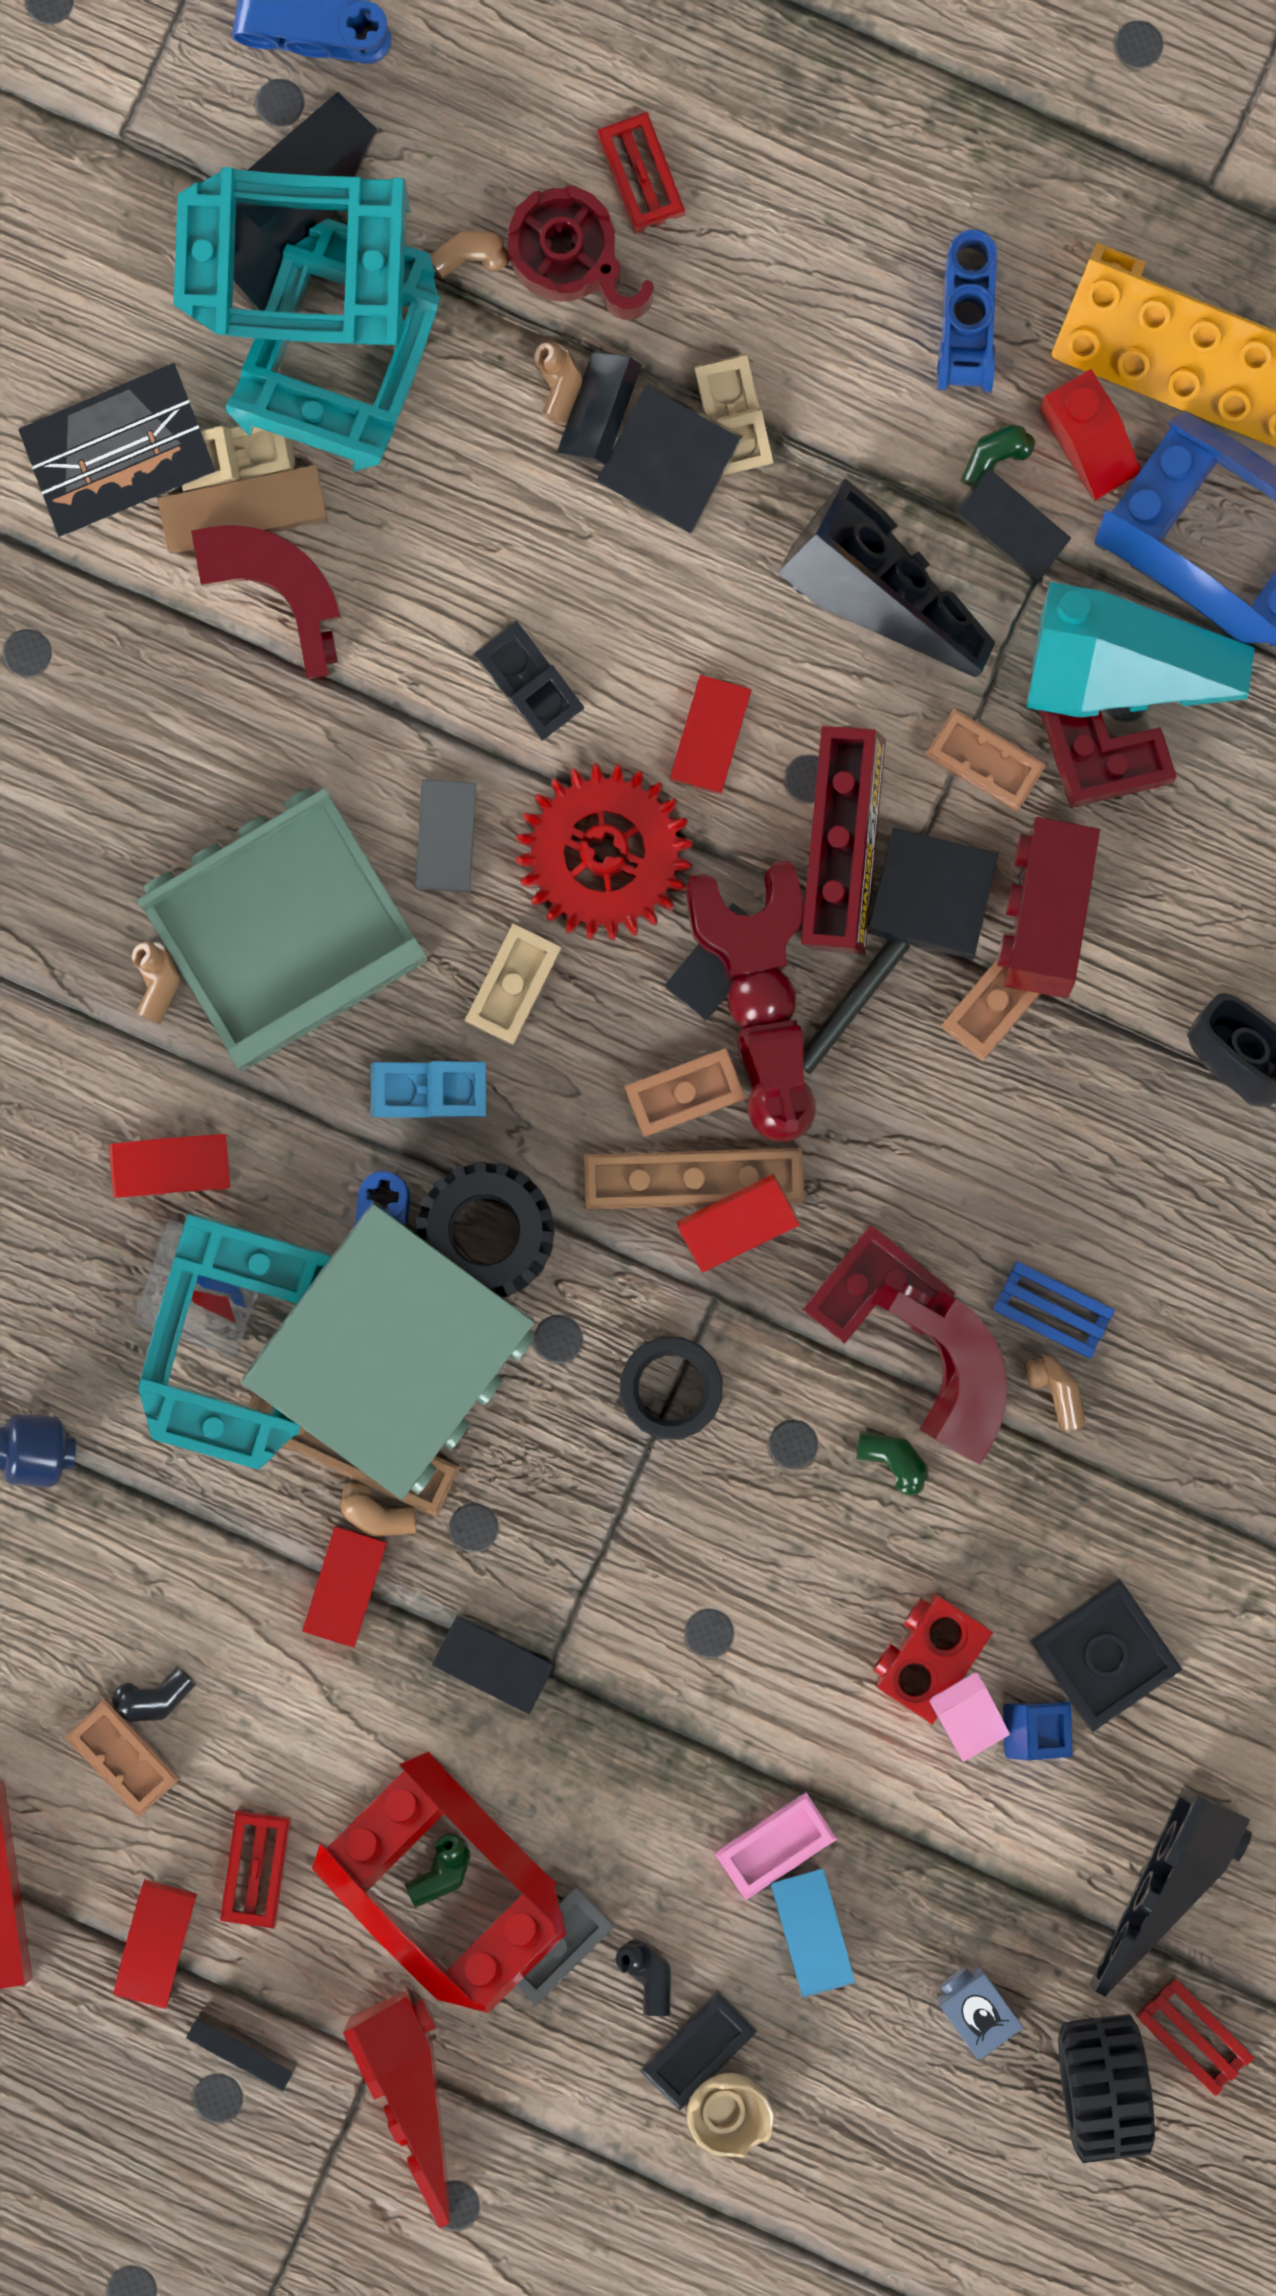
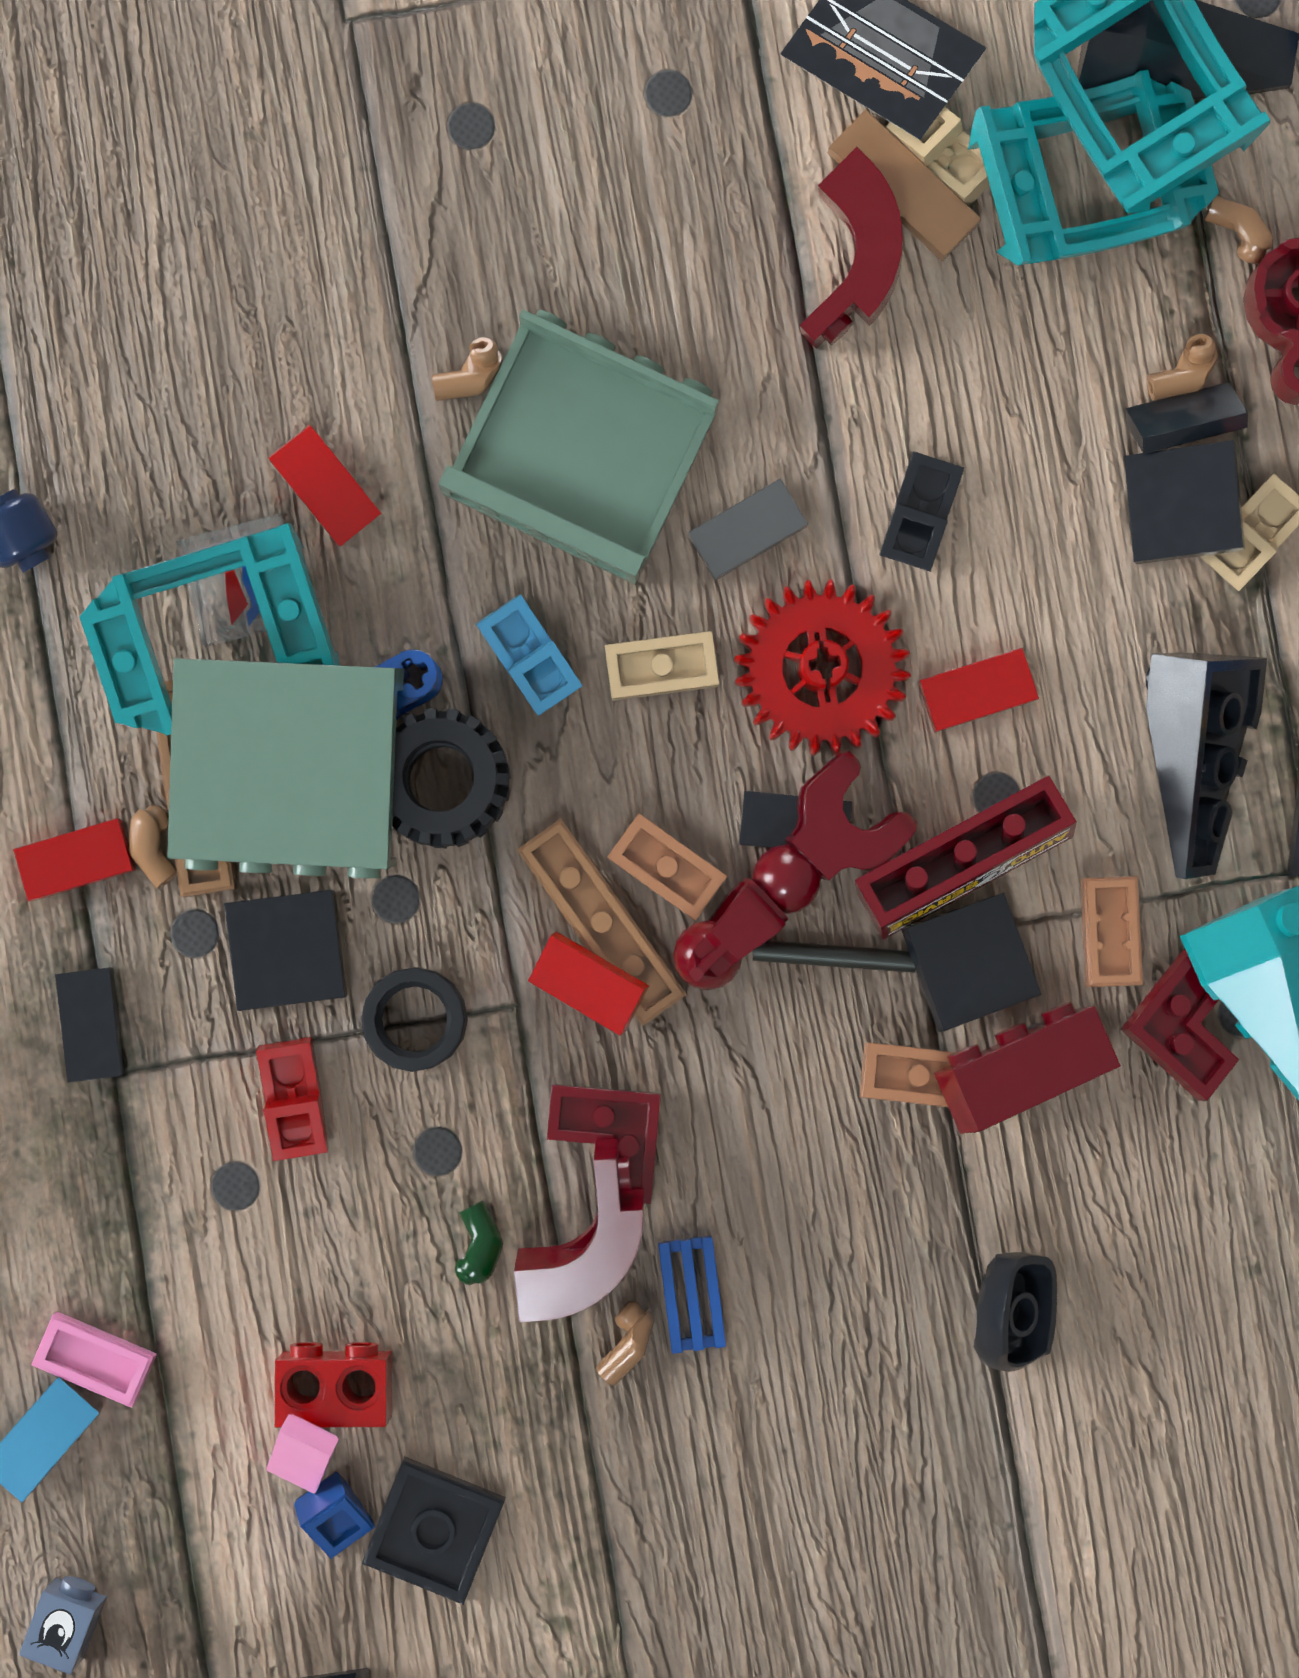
camera: 55 degrees right, 0 degrees up
(540, 1459) = (285, 950): none -> black tile
(669, 1535) = (292, 1099): none -> red slope

